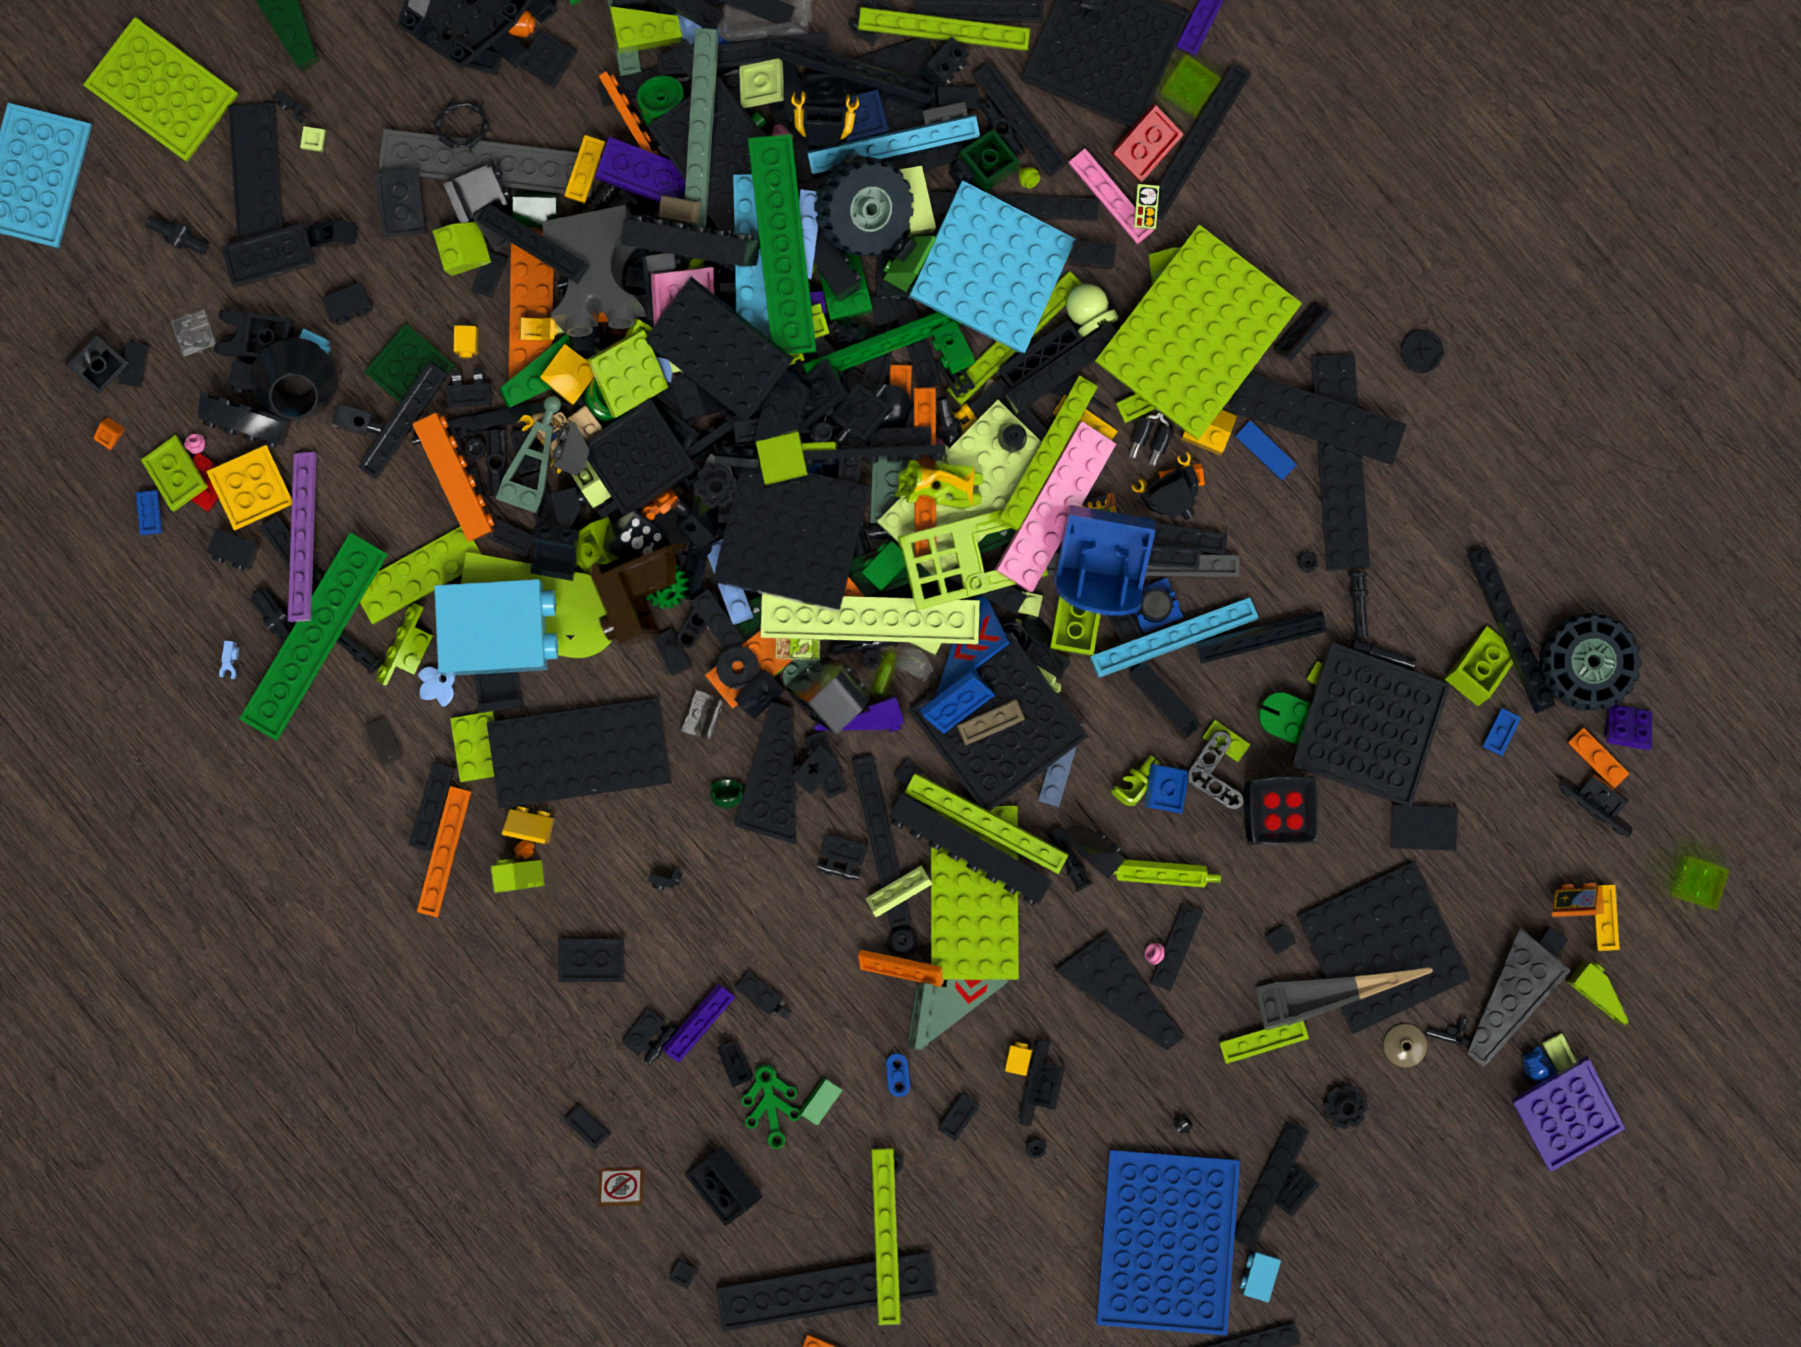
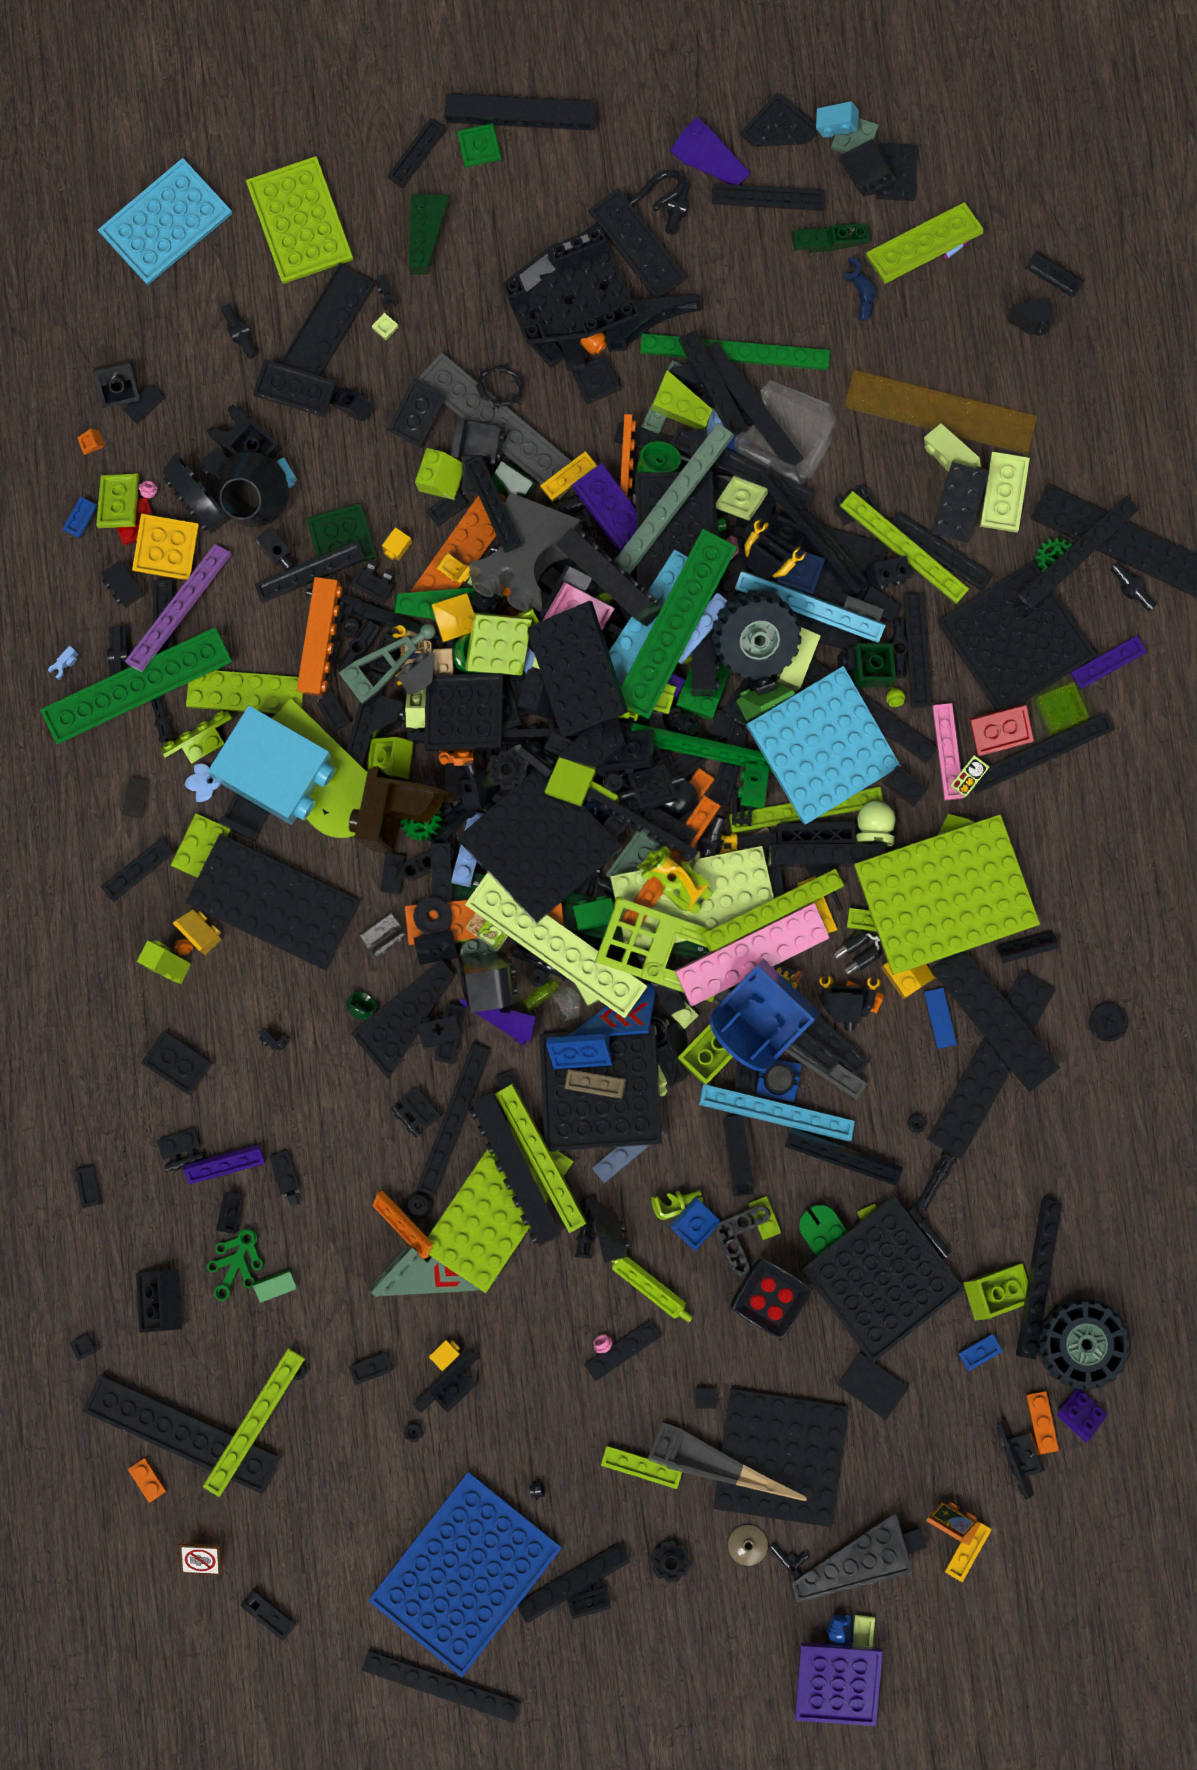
camera: 30 degrees right, 5 degrees down
(193, 333) = (202, 409): clear piece -> none
(347, 304) = (328, 461): black brick -> none
(444, 851) = (123, 909): orange plate -> none
(555, 551) = (355, 740): black panel -> none
(620, 1187) = (81, 1249): piece -> none
(633, 536) = (421, 767): black slope -> none
(679, 209) = (617, 549): dark tan tile -> none
(898, 891) = (440, 1165): yellowish green plate -> none
(898, 1075) = (346, 1305): blue plate -> none
(1014, 443) = (752, 886): black cone -> none
(1113, 982) = (556, 1344): black wing -> none
(1260, 1275) = (518, 1648): medium azure brick -> none
(1596, 987) = (924, 1598): lime slope -> none
(1700, 883) = (1058, 1572): clear neon green brick -> none

